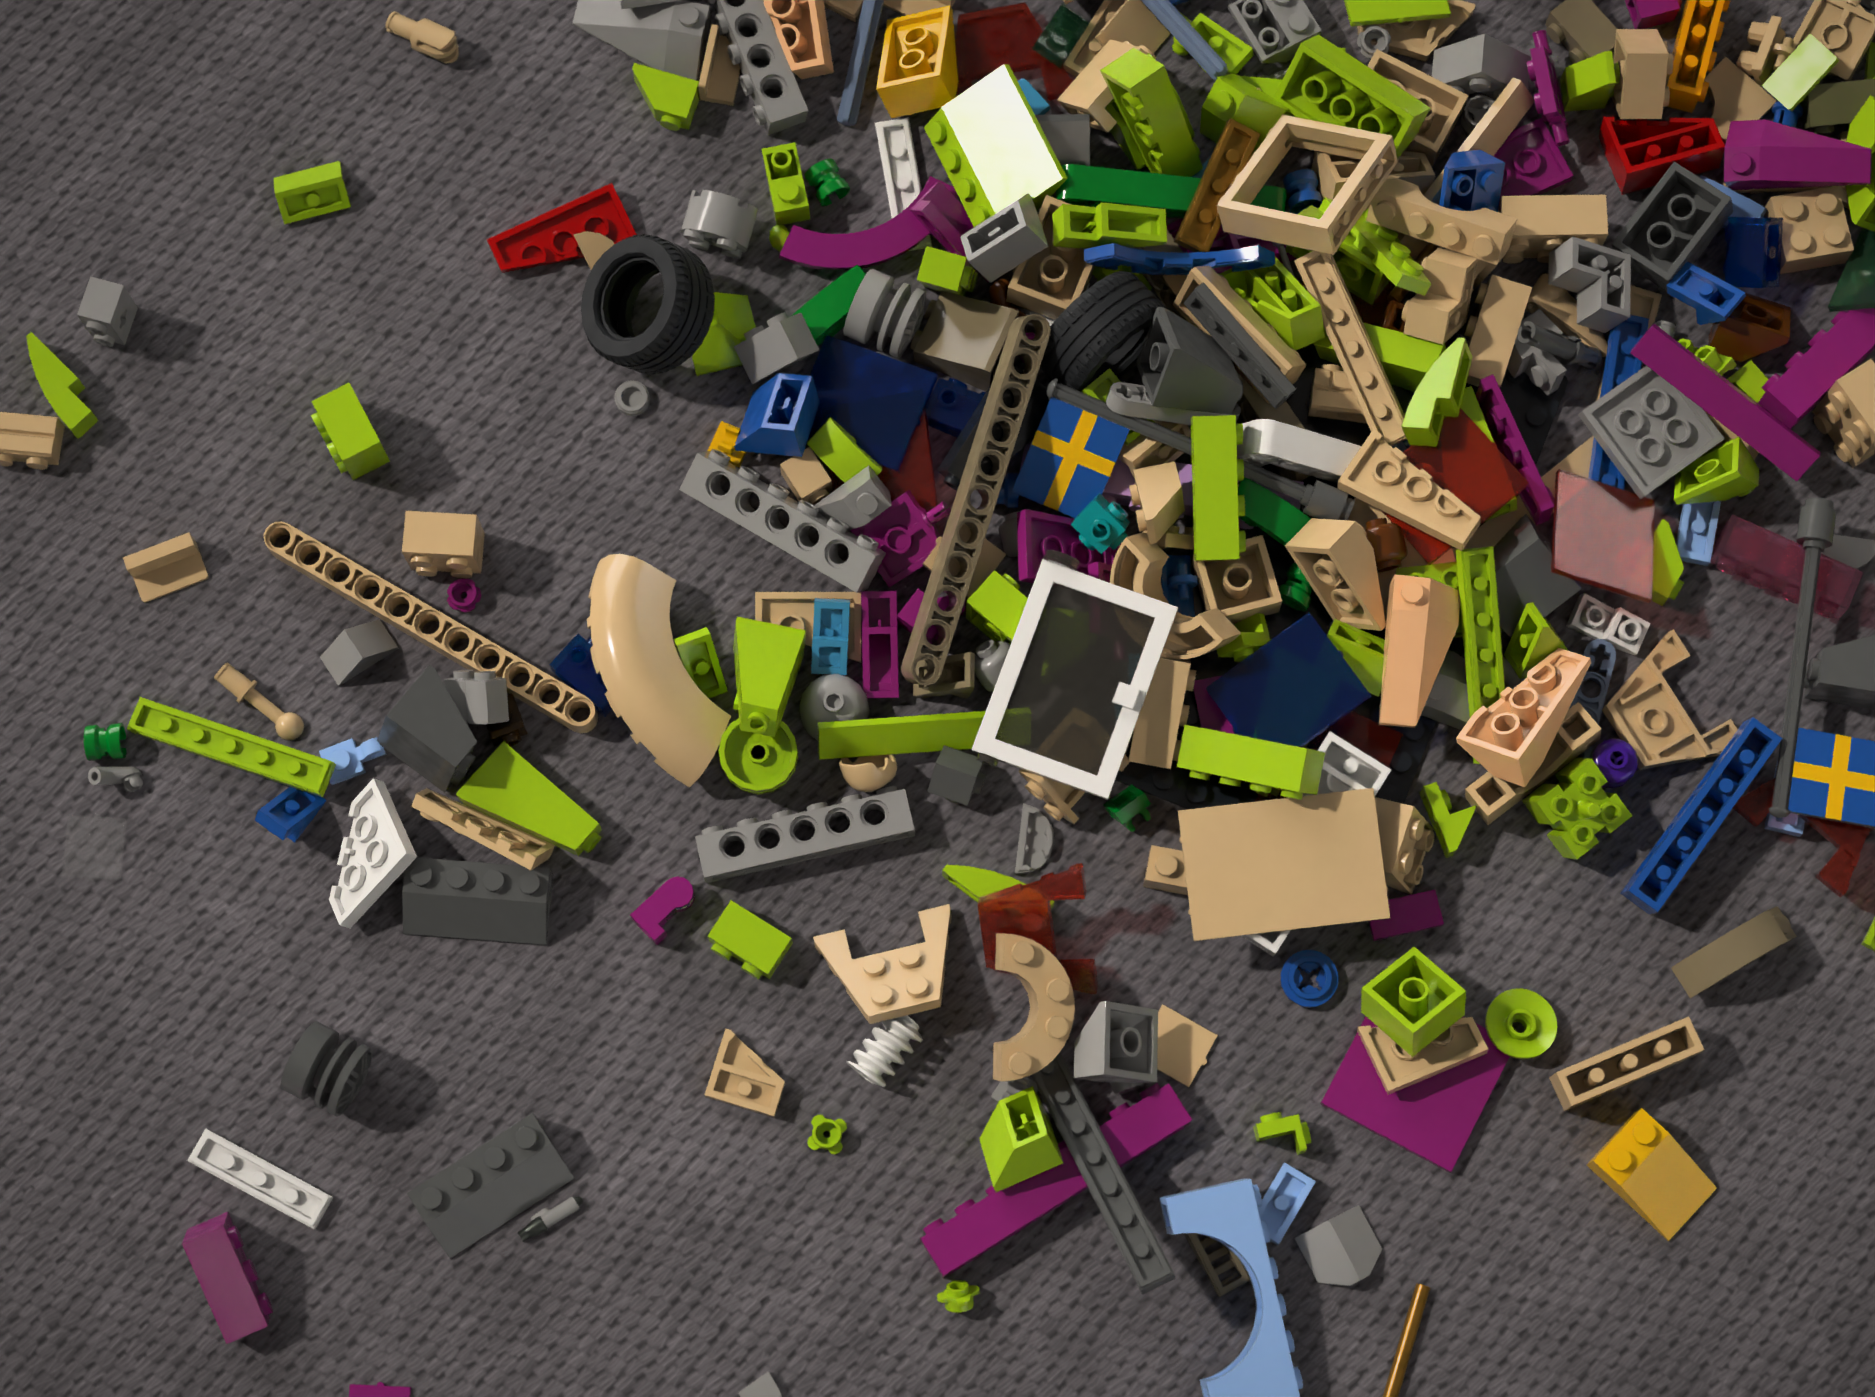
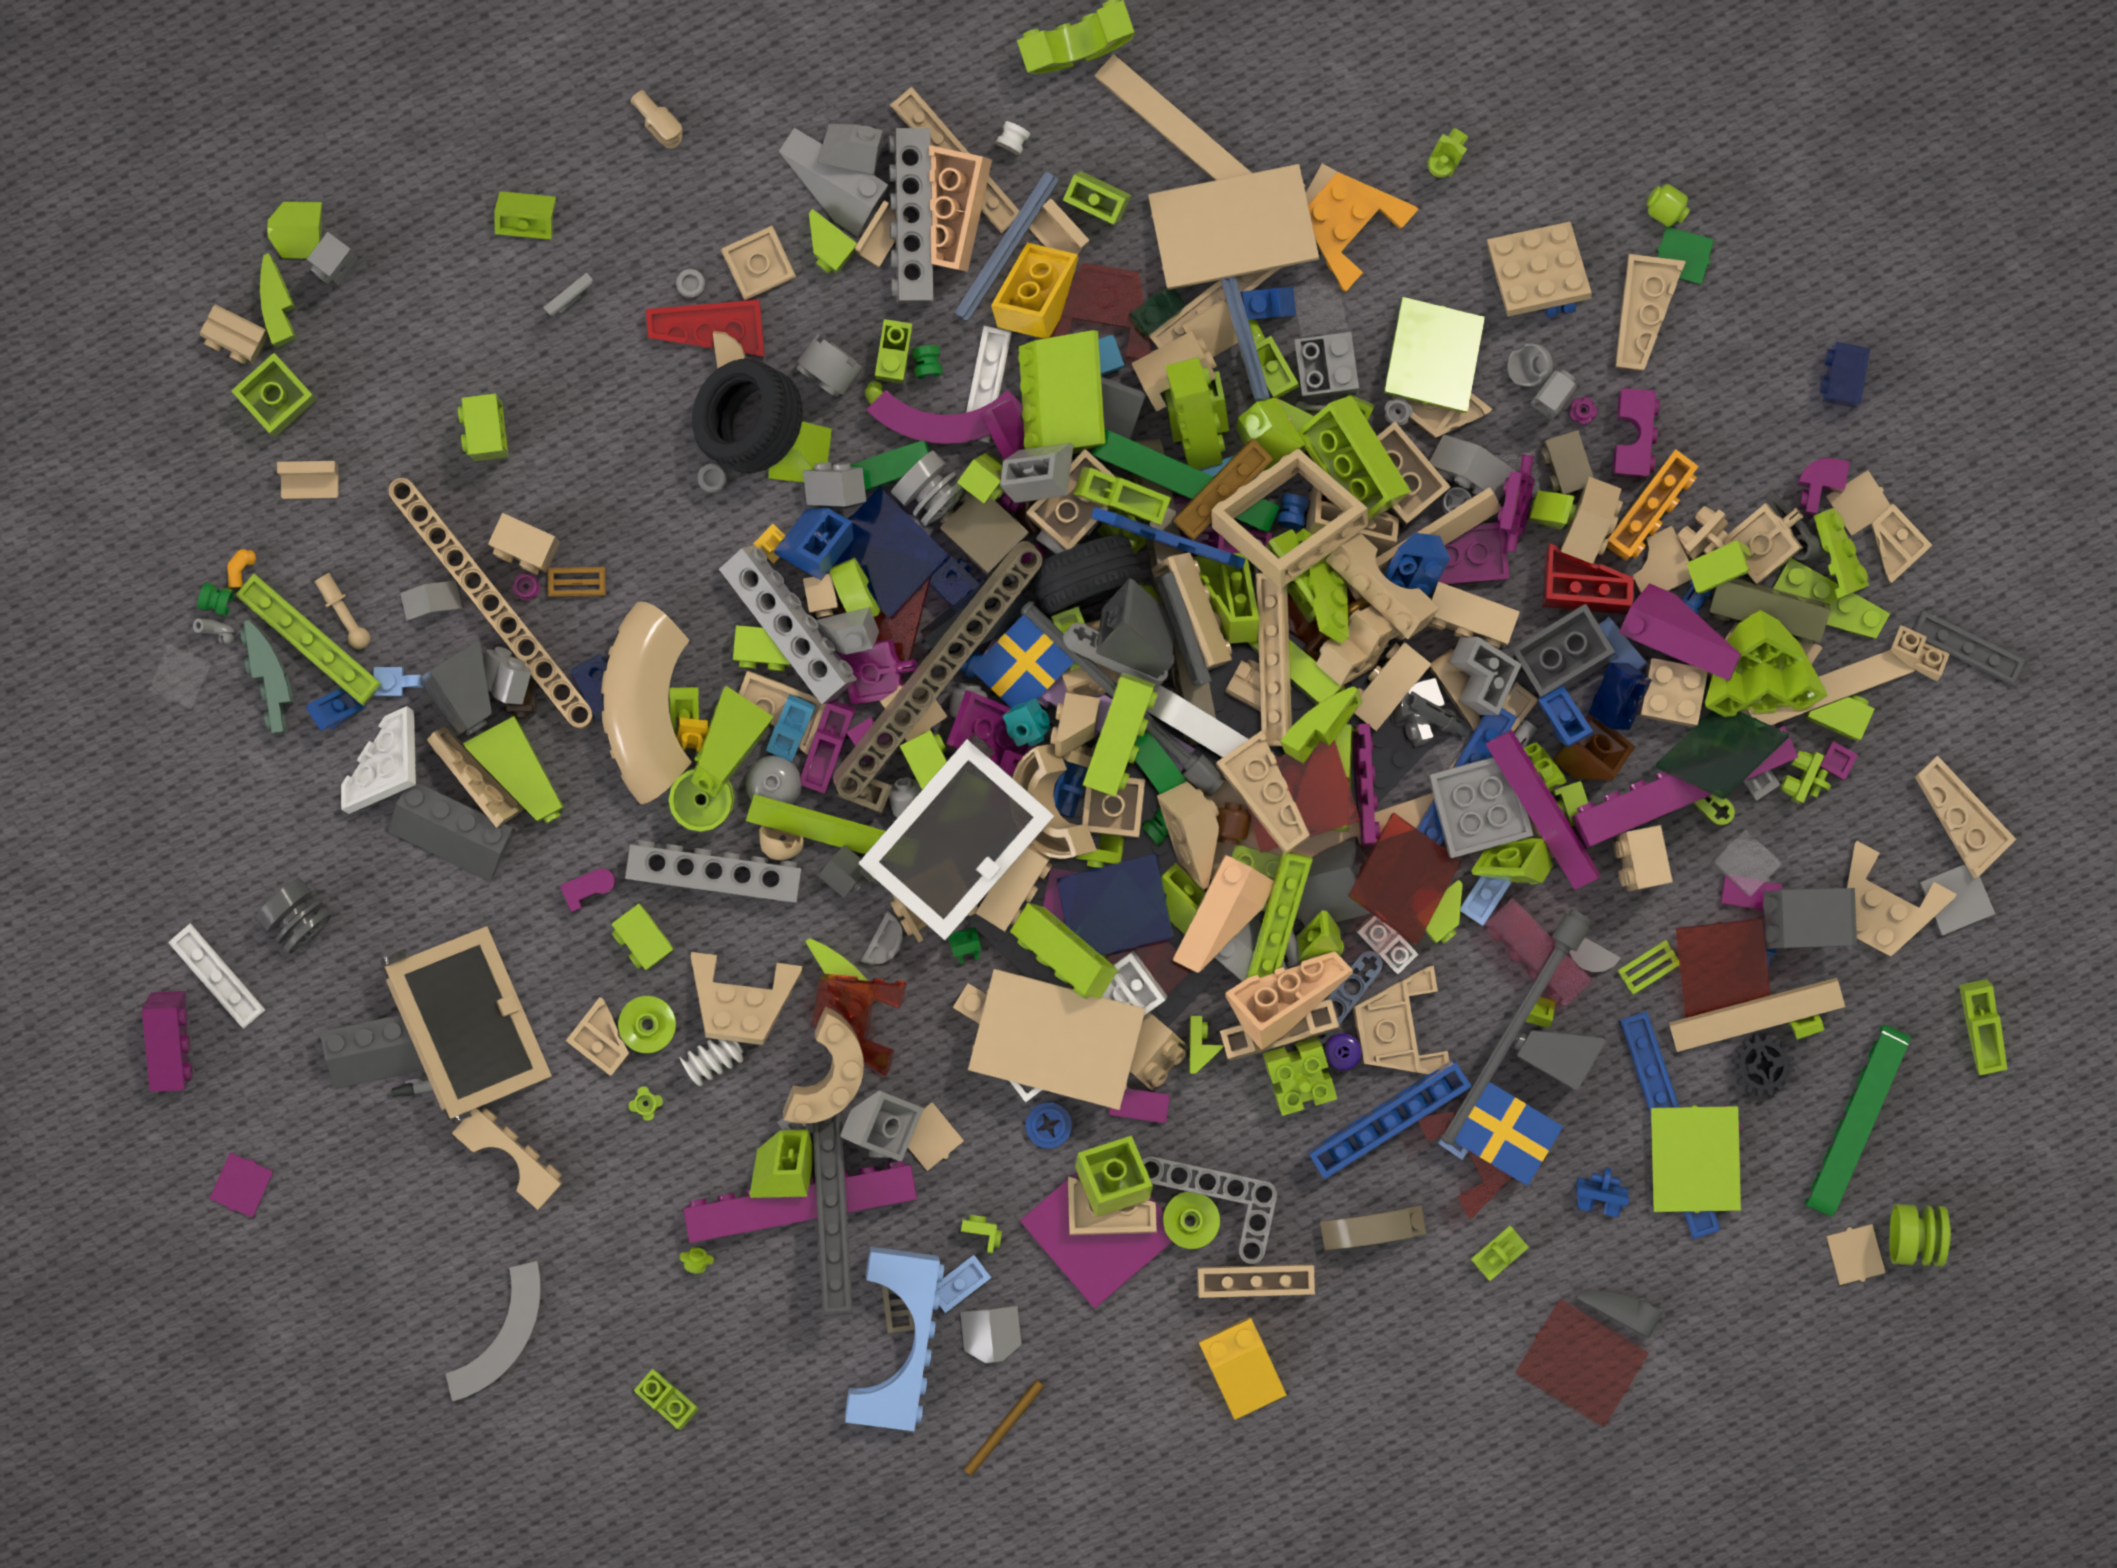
camera: 15 degrees right, 10 degrees up
(53, 300) = (296, 229): none -> lime slope
(93, 486) = (274, 395): none -> lime brick
(116, 695) = (237, 564): none -> light orange arm
(192, 795) = (267, 665): none -> sand green slope
(393, 259) = (568, 296): none -> light grey tile
(526, 580) = (577, 593): none -> pearl gold tile
(527, 197) = (690, 283): none -> light grey tile
(577, 1117) = (465, 1022): none -> door
(595, 148) = (758, 263): none -> tan tile
(644, 1242) = (536, 1181): none -> tan arch
(719, 684) = (691, 733): none -> yellow tile
(758, 562) = (756, 647): none -> lime slope
(788, 1021) = (631, 1026): none -> lime dish
(984, 291) = (1009, 505): none -> magenta plate
(1540, 976) = (1219, 1190): none -> light grey beam
(1821, 634) = (1542, 1013): none -> lime plate

